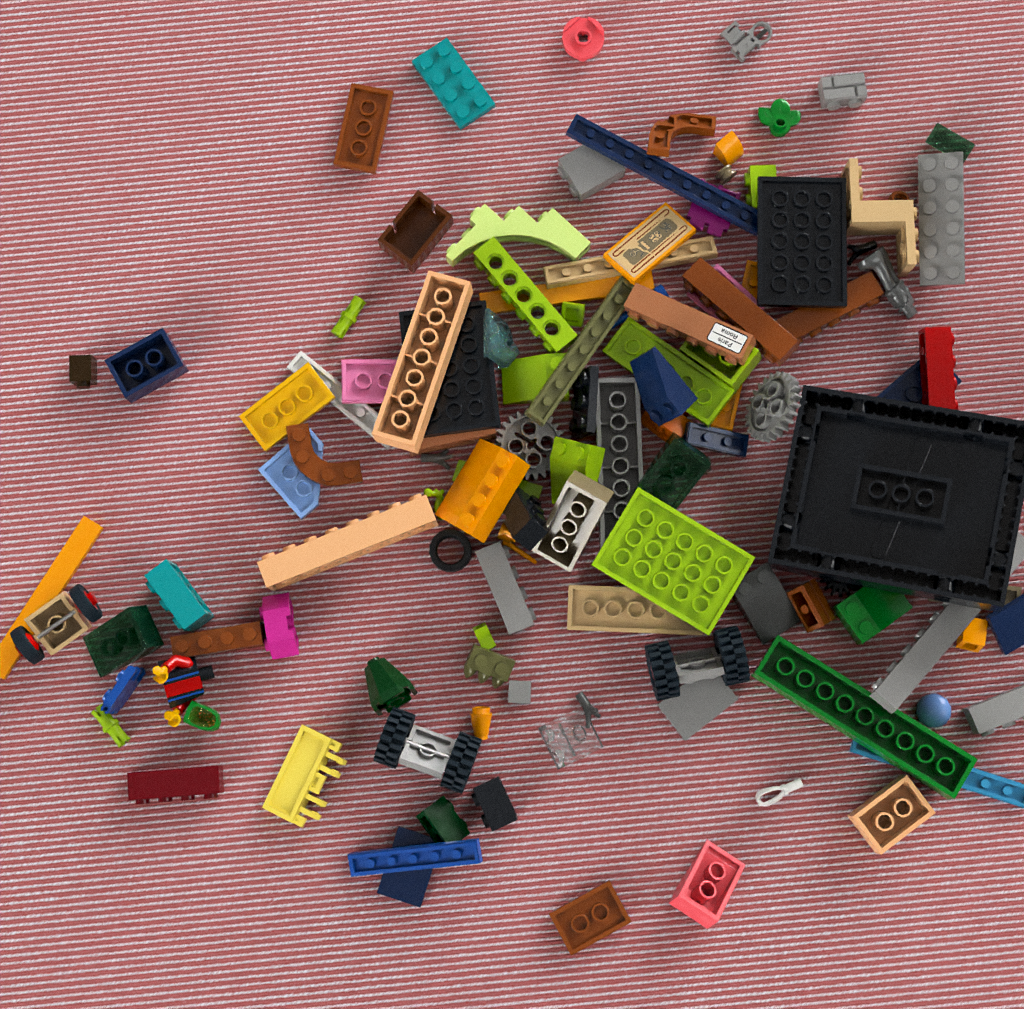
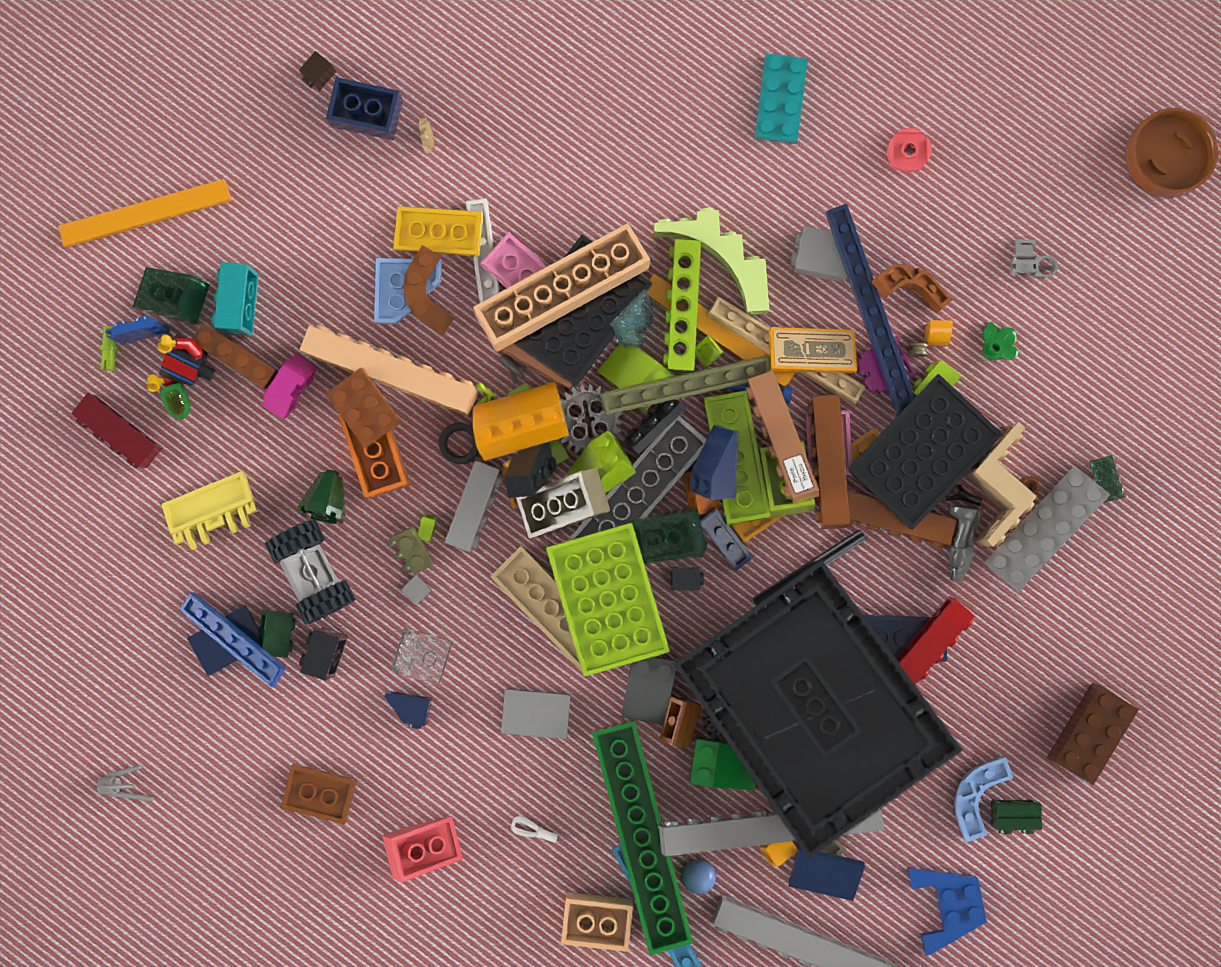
camera: 40 degrees right, 5 degrees up
(57, 623) = (130, 240): brick -> none
(212, 343) = (426, 135): none -> tan gear
(348, 317) = (543, 205): lime pin -> none
(355, 586) = (363, 407): none -> dark orange plate
(363, 128) = (683, 73): dark orange plate -> none
(390, 613) = (378, 465): none -> orange brick
(416, 232) = (650, 187): reddish brown piece -> none
(481, 721) = (369, 585): light orange cone -> none
(588, 708) = (454, 645): dark grey bar -> none
(600, 785) = (410, 708): none -> dark blue slope
(715, 494) = (686, 578): none -> black brick
(725, 660) = (558, 688): black plate -> none
(773, 406) = (787, 554): light grey gear -> none
(804, 378) = (828, 557): none -> black axle
(842, 91) = (1065, 366): light grey brick -> none

